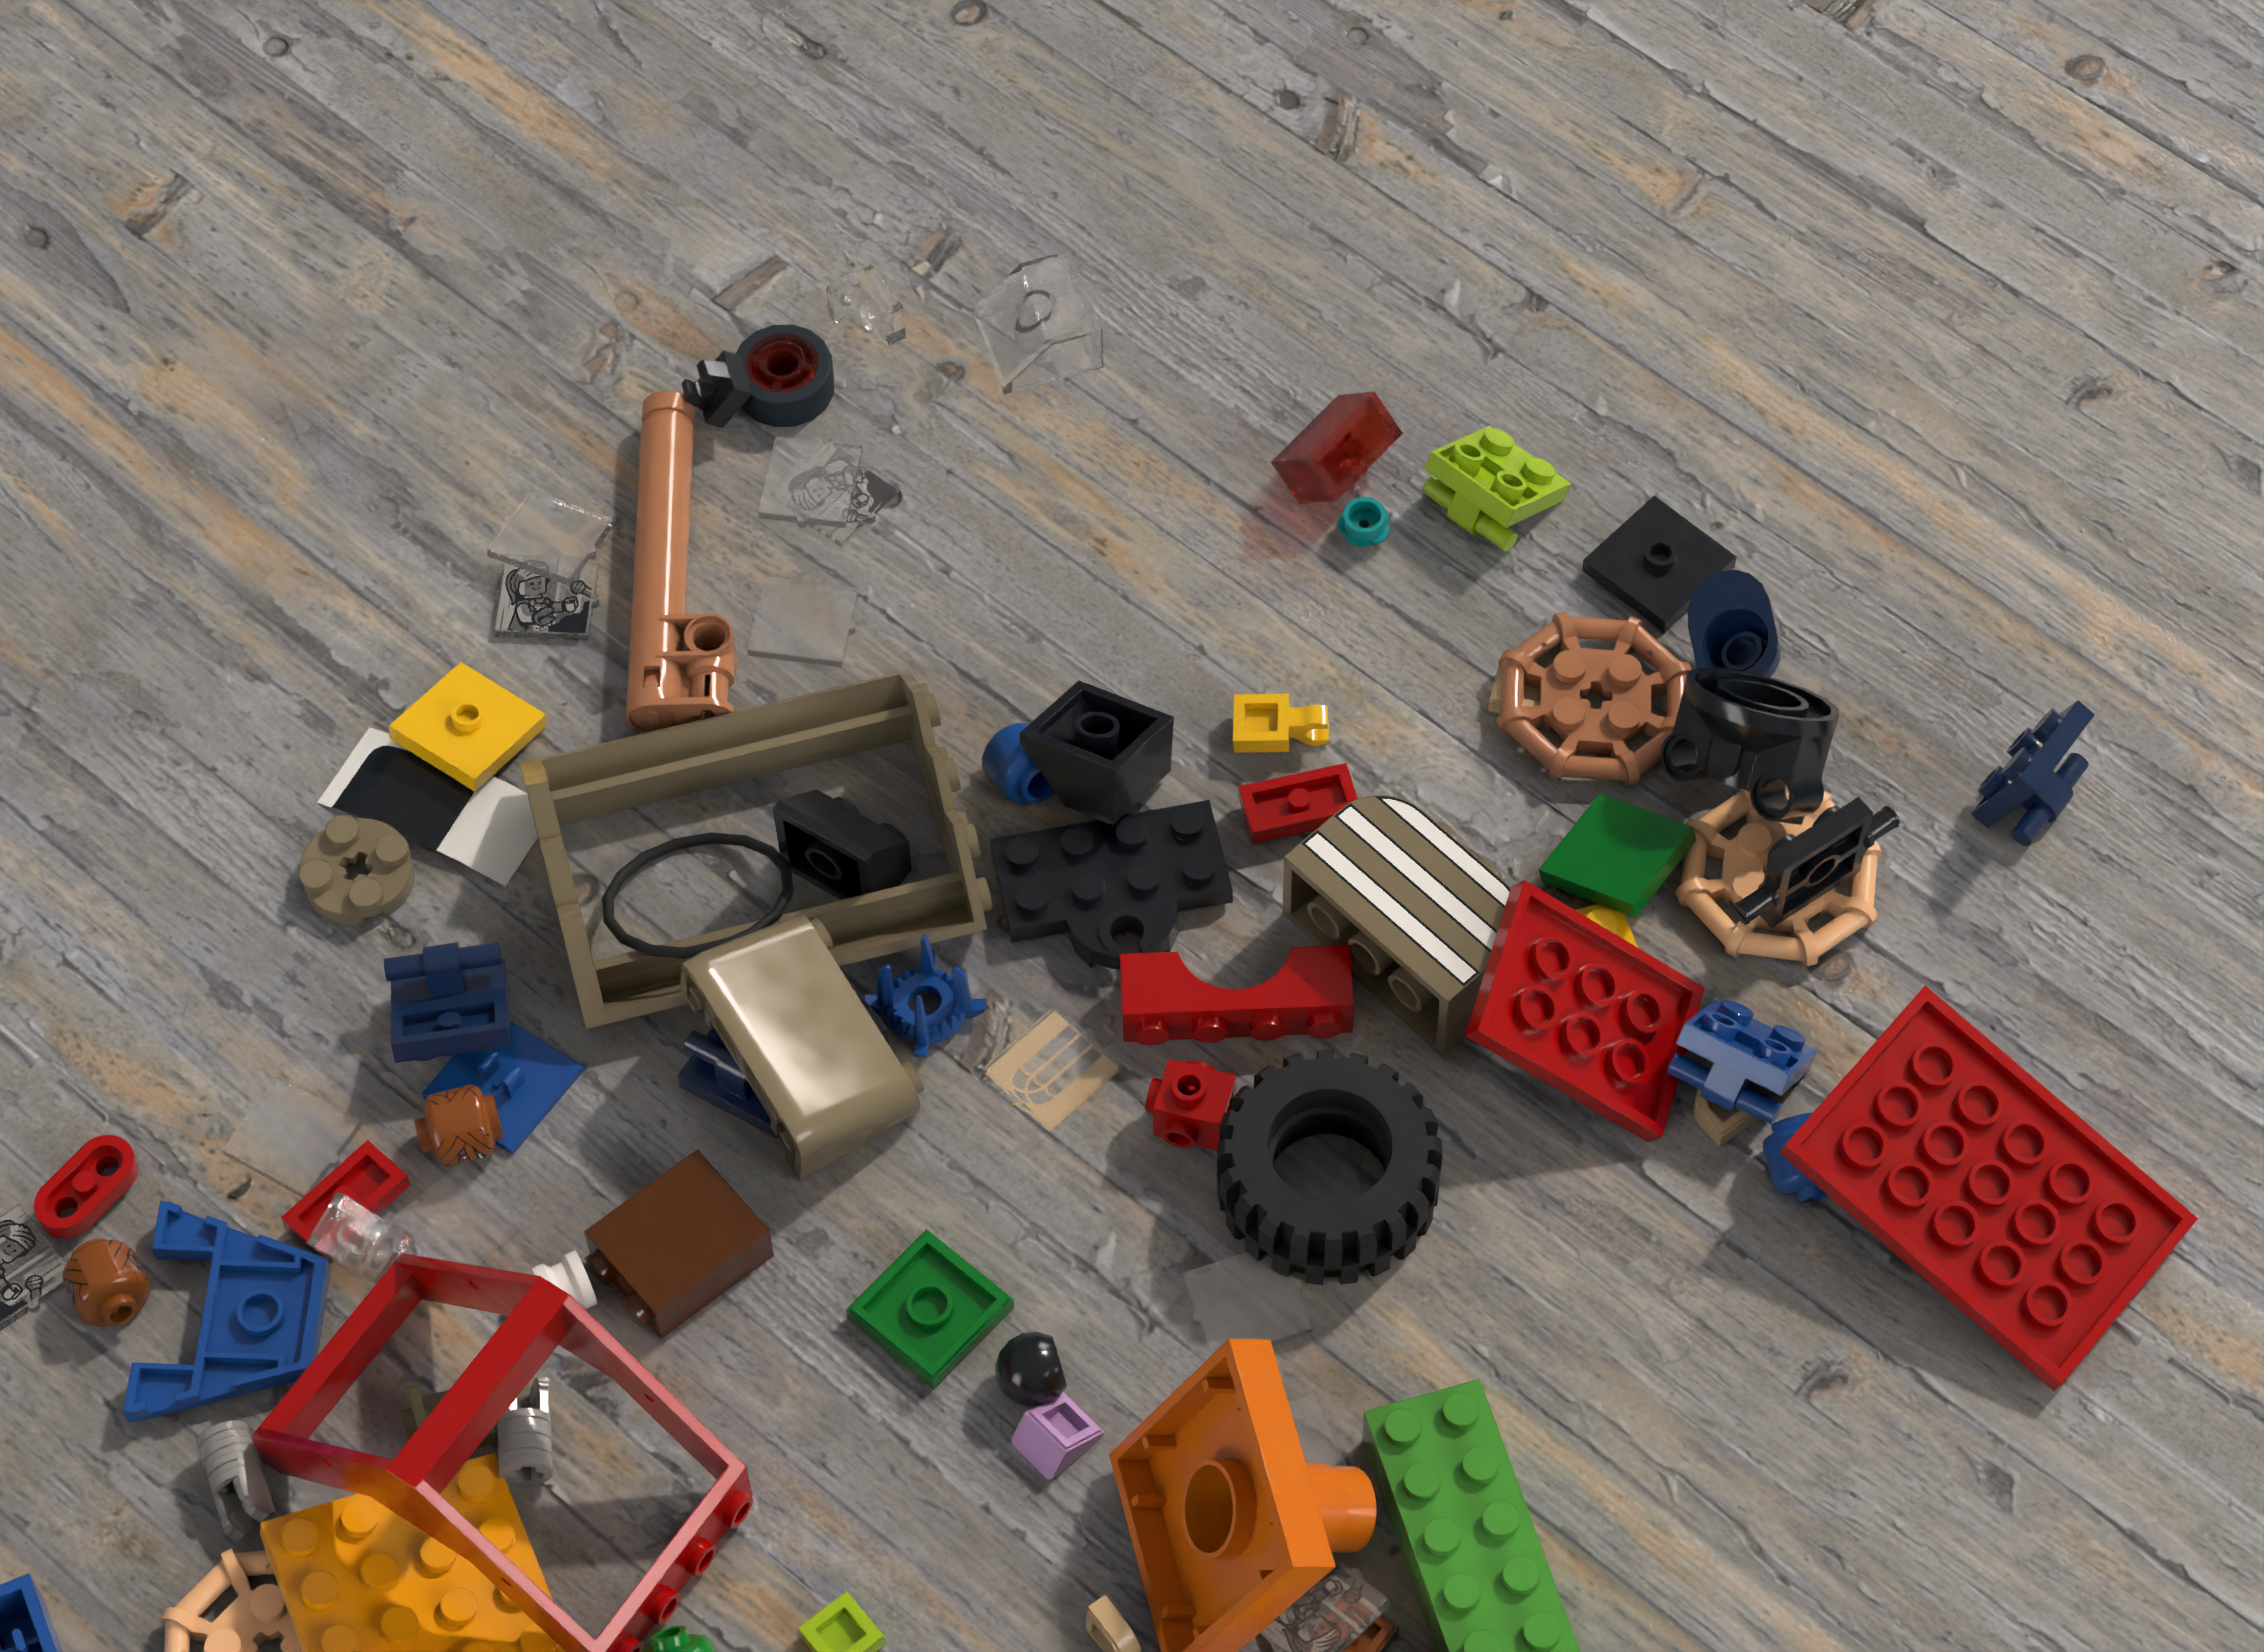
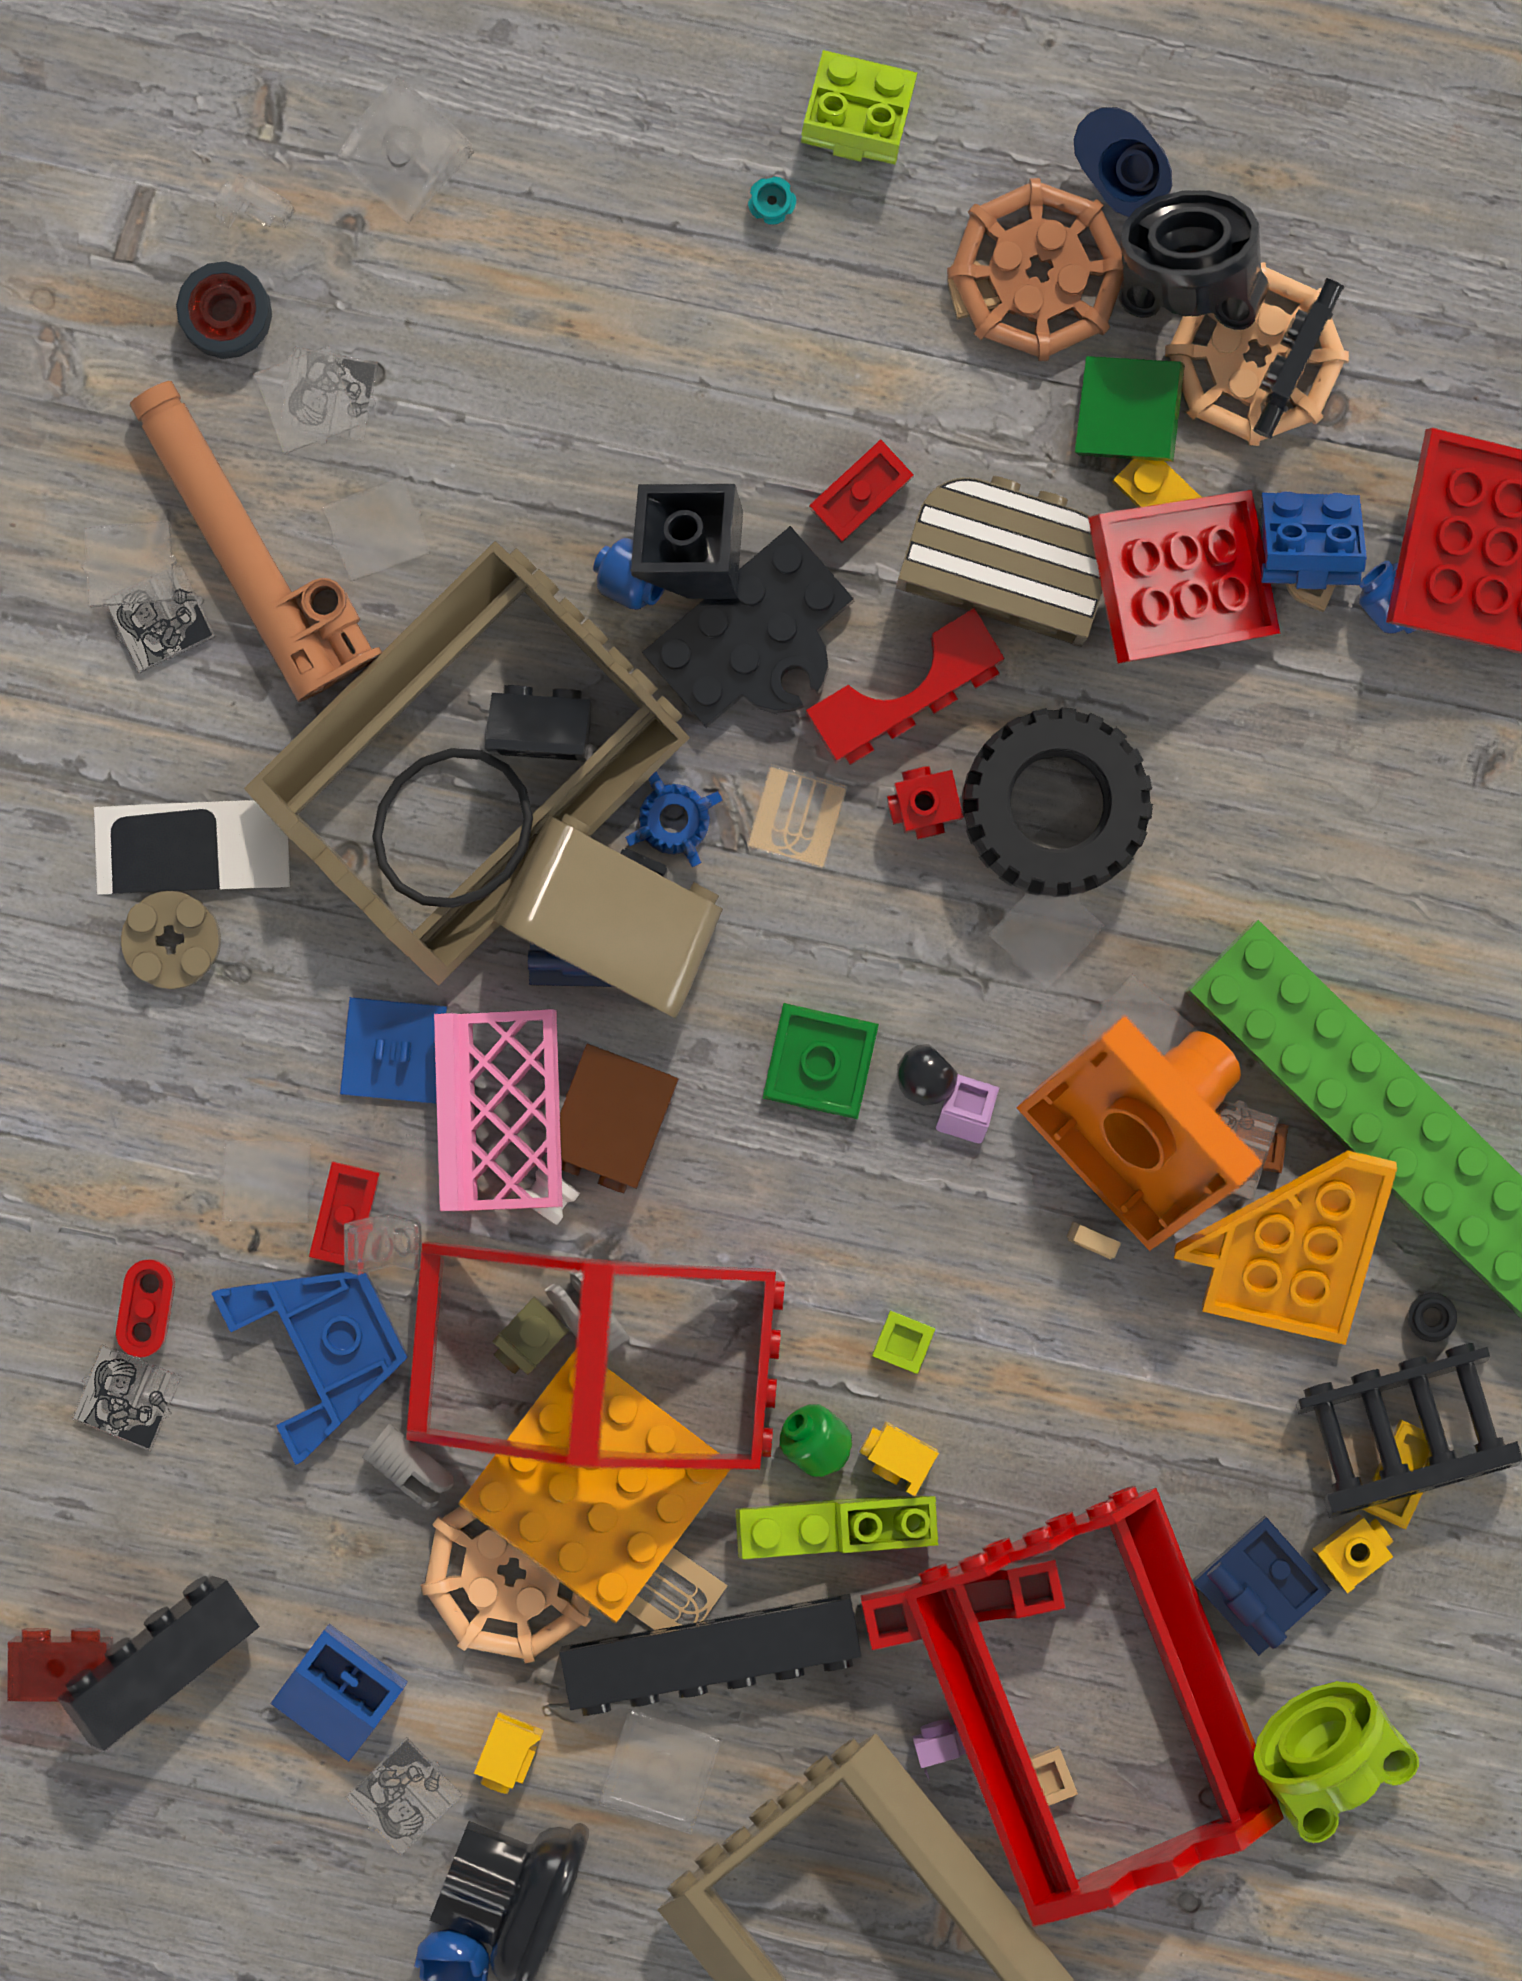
camera: 30 degrees left, 30 degrees up
(105, 1283) = (213, 1375): dark orange head -> none
(448, 1001) = (325, 1025): dark blue plate -> none
(459, 1125) = (393, 1113): dark orange head -> none
(467, 726) = (176, 772): yellow plate -> none
(528, 1156) = (457, 1110): none -> bright pink fence
(720, 388) = (185, 358): black tile -> none
(1269, 722) = (797, 431): yellow plate -> none
(1336, 447) = (718, 147): clear red brick -> none
(1657, 562) = (1023, 110): black plate -> none
(2030, 775) = (1413, 165): dark blue plate -> none

